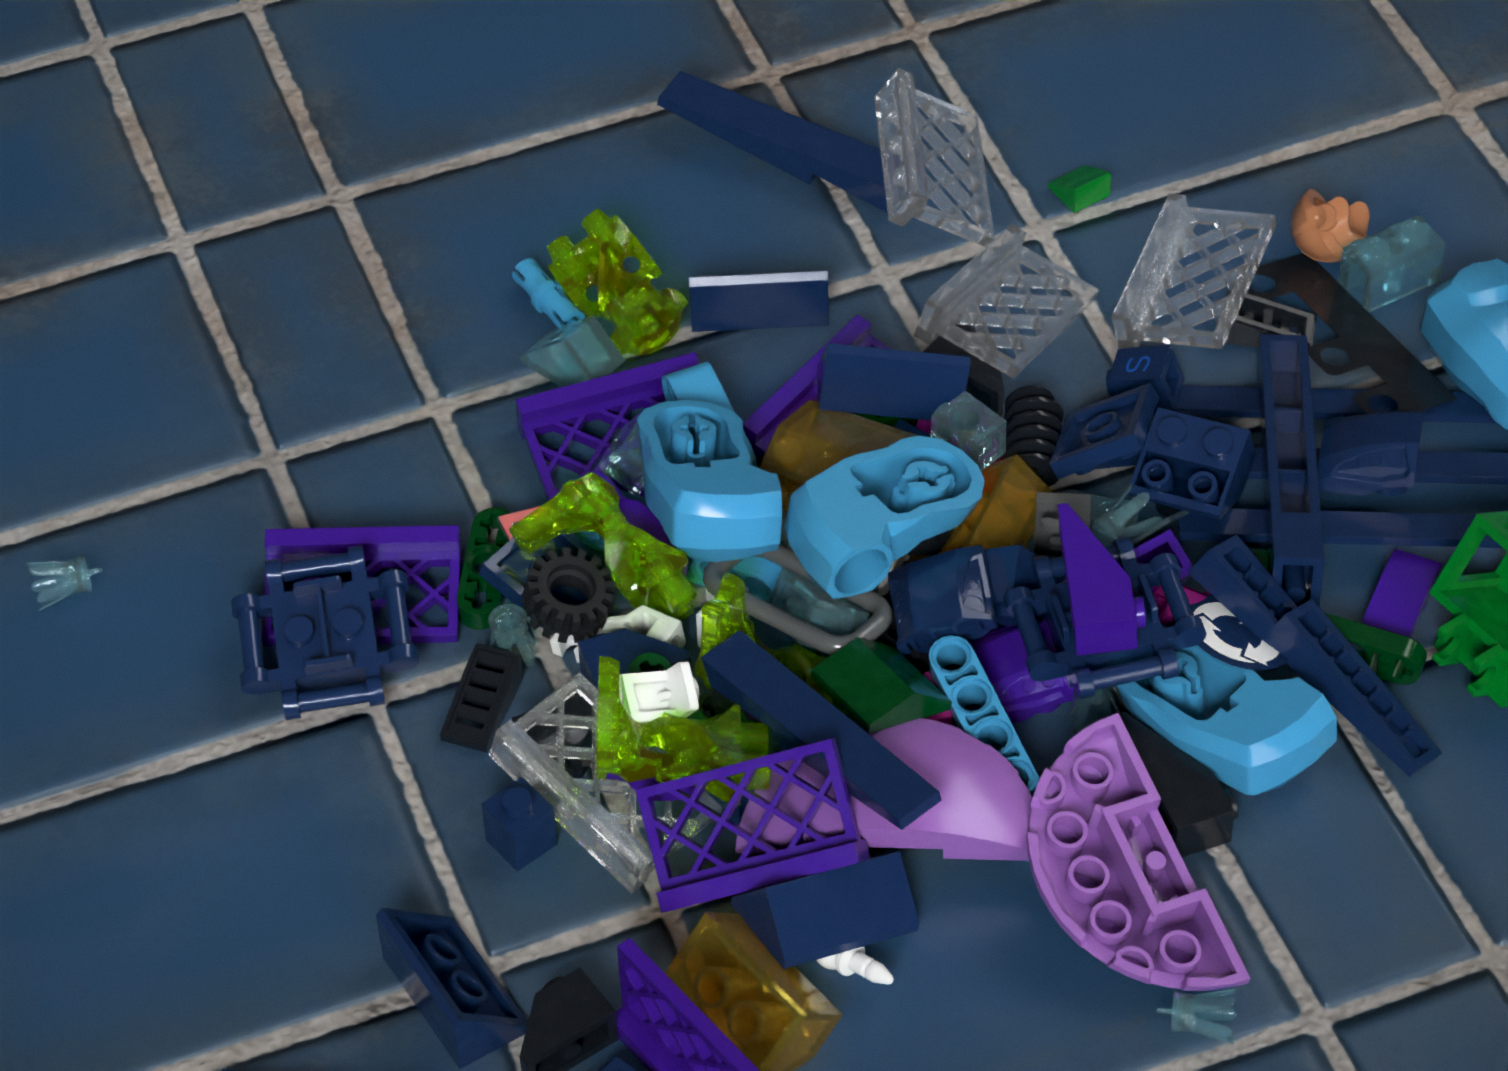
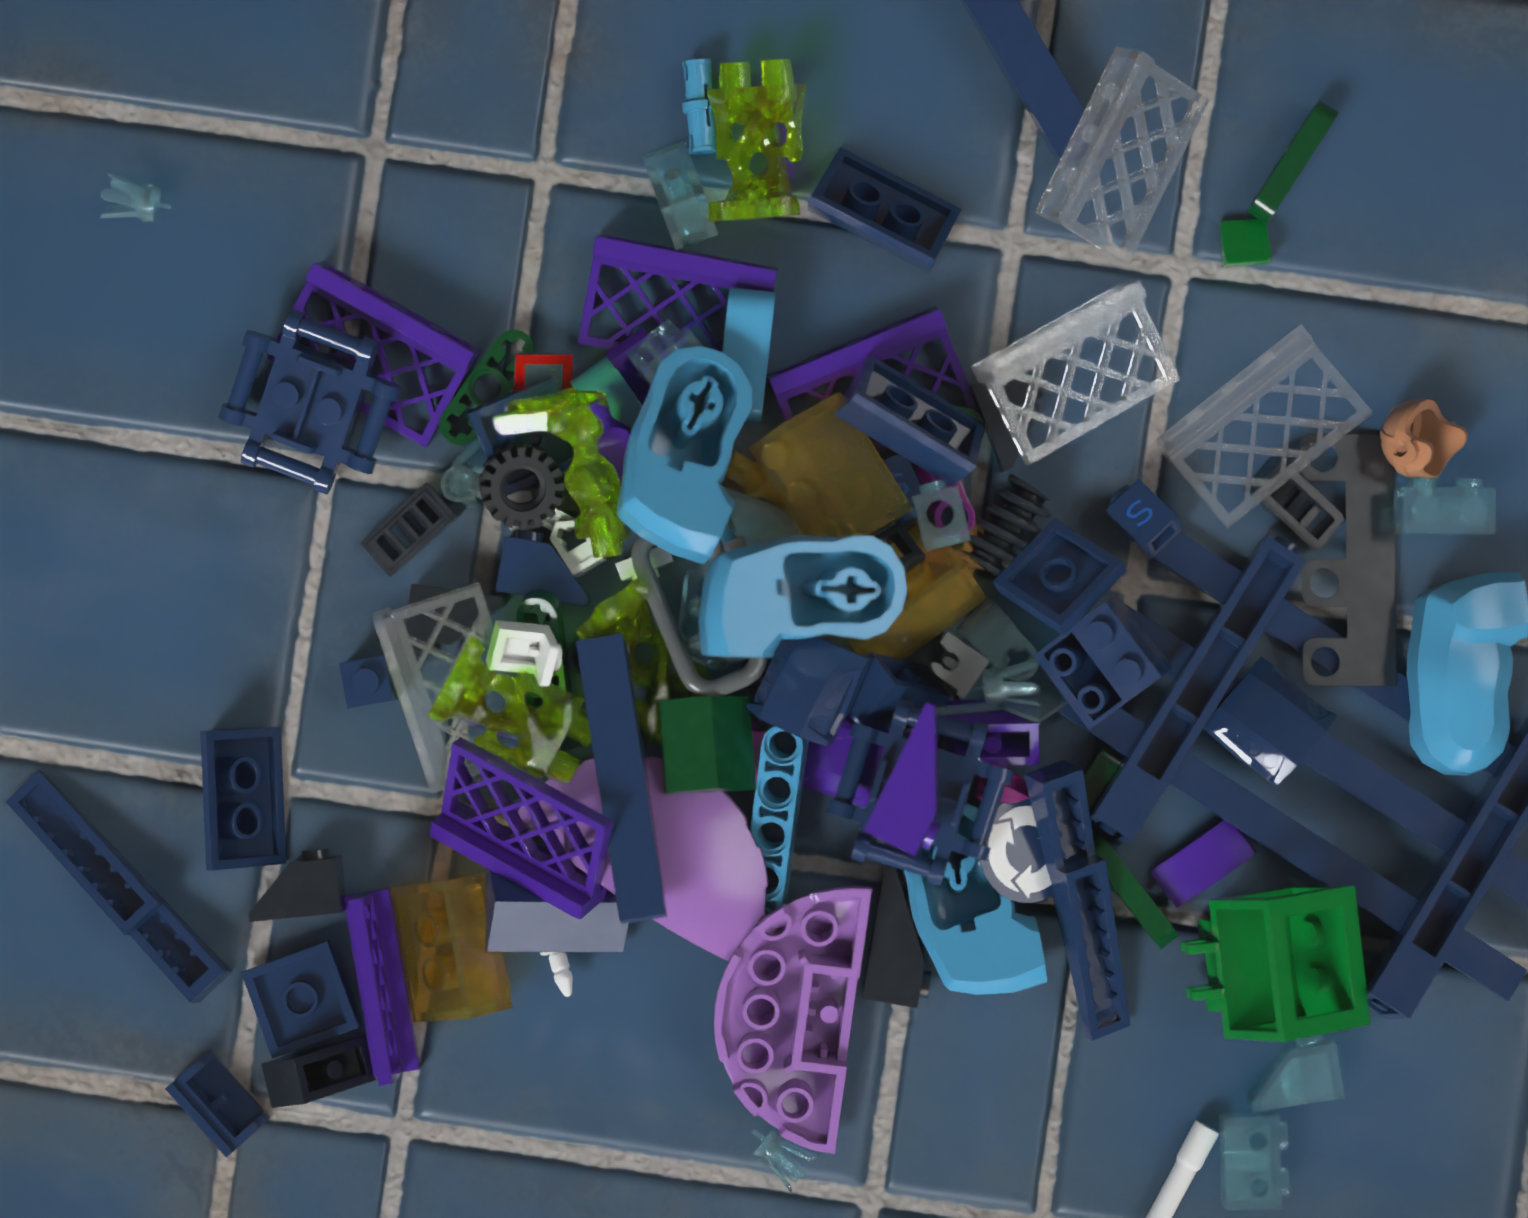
camera: 30 degrees right, 40 degrees up
(1076, 117) = (1292, 162): none -> dark green beam

